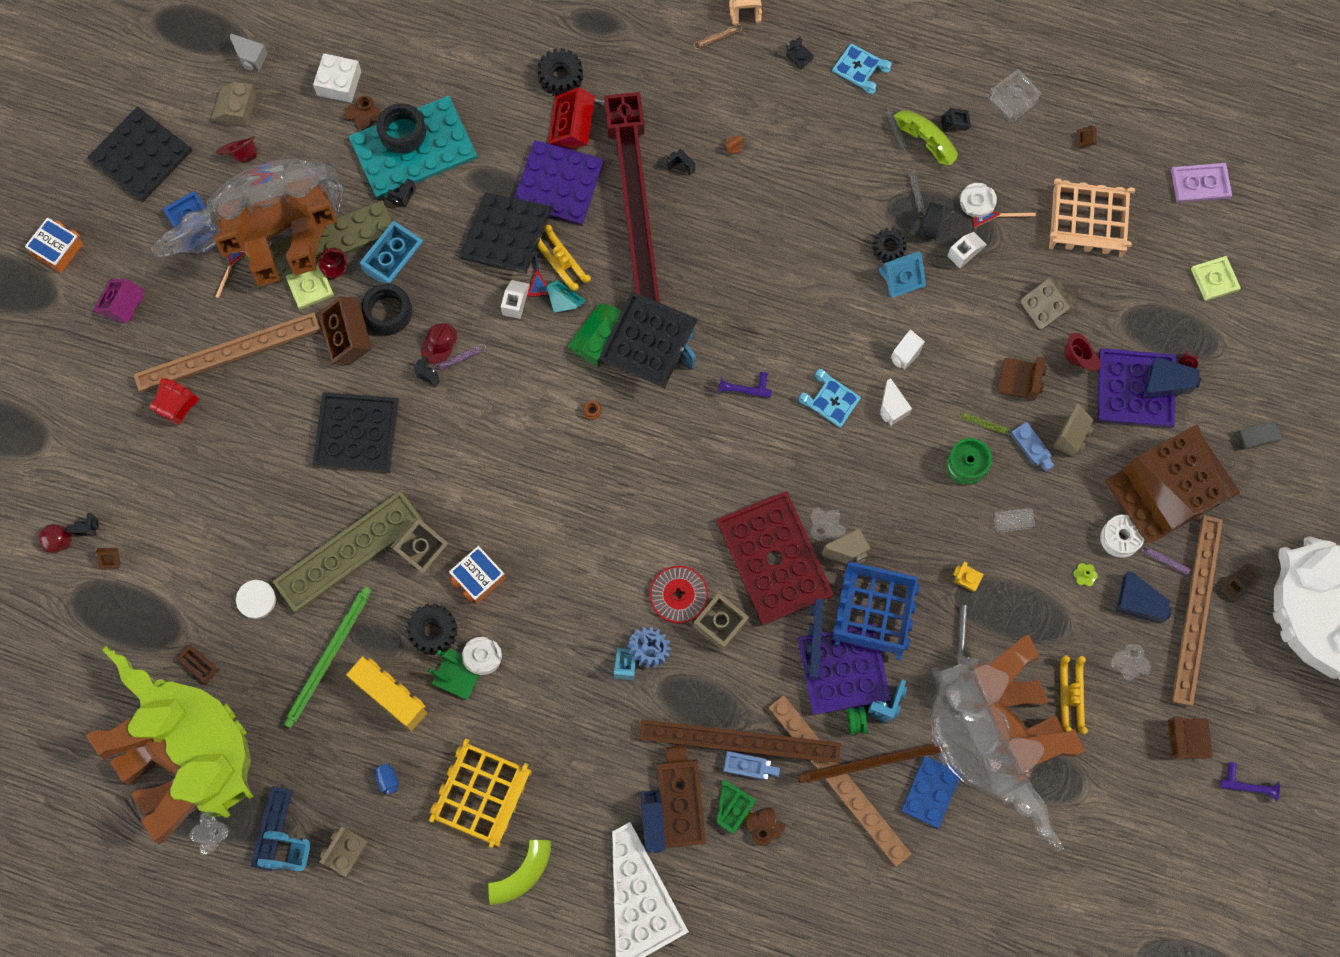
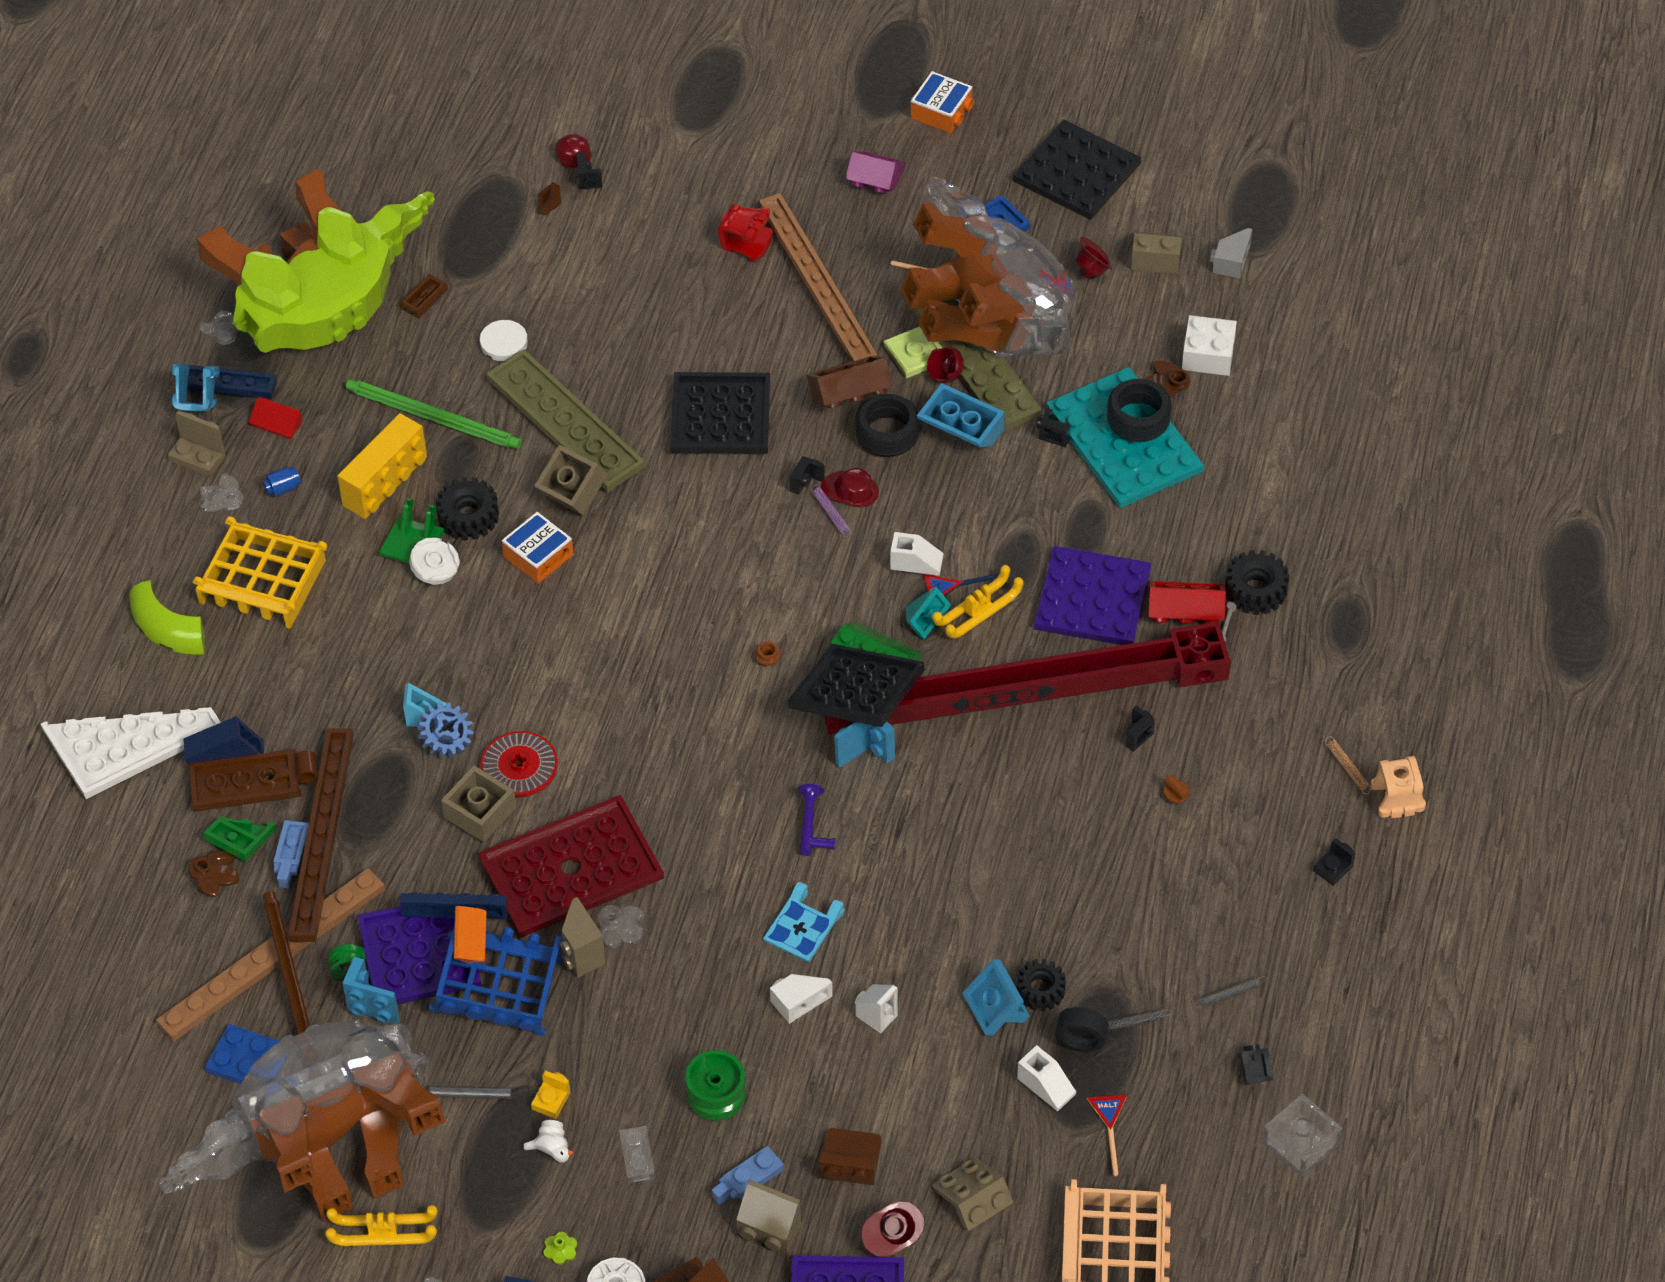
camera: 90 degrees right, 20 degrees down
(317, 787) = (275, 418): none -> red slope
(390, 832) = (222, 496): none -> clear plate
(505, 232) = (1007, 537): black plate -> none
(850, 624) = (470, 934): none -> orange slope
(858, 66) = (1327, 939): medium azure flag -> none
(936, 140) = (1224, 1023): lime brick -> none
(978, 200) = (1129, 1099): white tile -> none
(990, 427) = (782, 1117): lime piece -> none
(1007, 576) = (551, 1141): none -> white animal
(1086, 137) = (1251, 1240): reddish brown plate -> none

